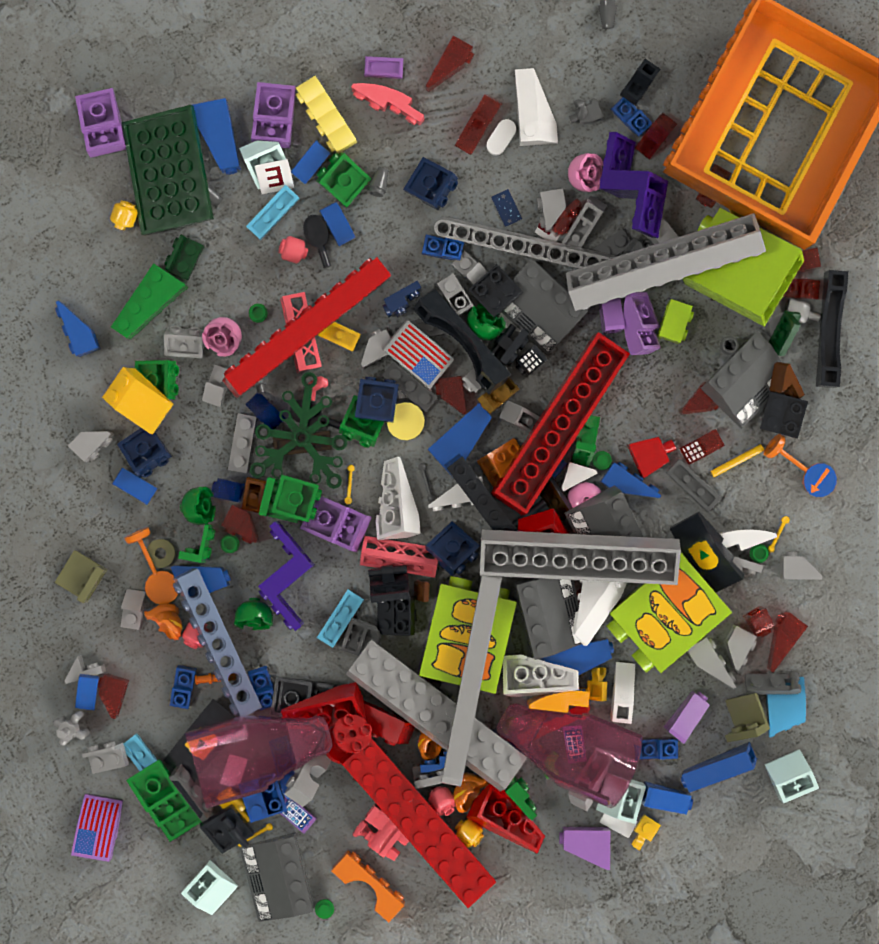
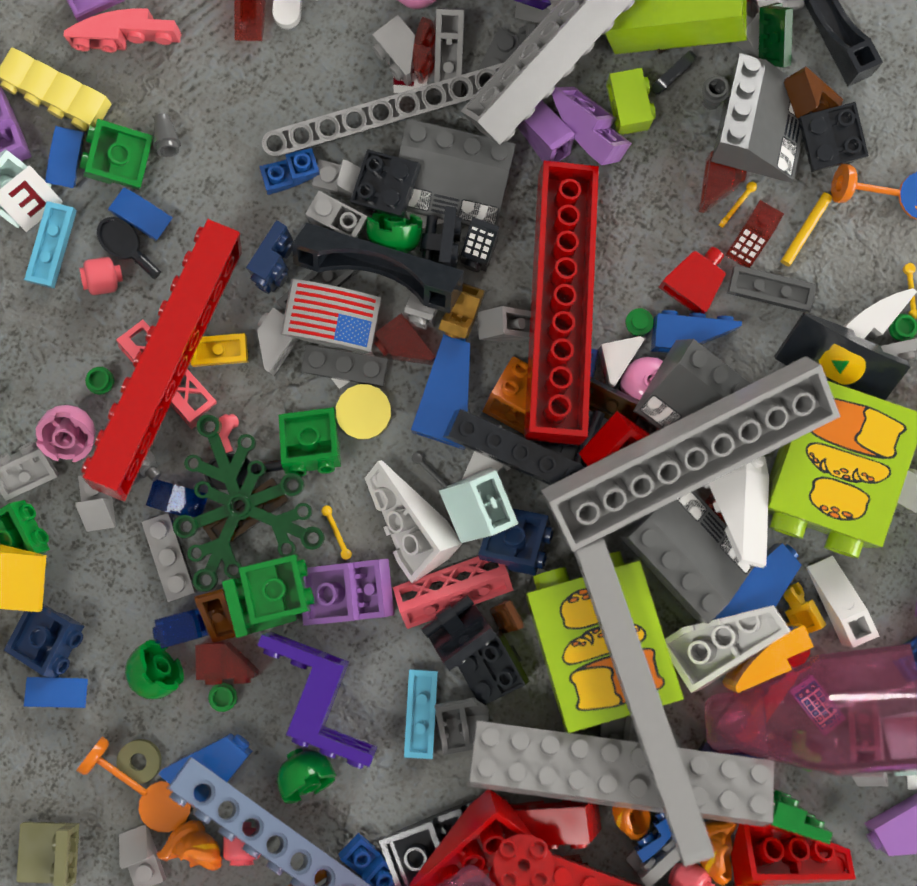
camera: 25 degrees left, 5 degrees down
(201, 556) = (191, 725): green bracket -> none
(377, 399) = (310, 403): dark blue plate -> none
(431, 183) = (231, 100): dark blue plate -> none
(441, 517) = (478, 506): none -> light aqua slope
(506, 208) = (342, 82): dark blue sticker -> none
(585, 442) = (608, 312): green bracket -> none
(712, 318) = (673, 73): none -> black tile
(719, 415) = (750, 187): none -> yellow hinge

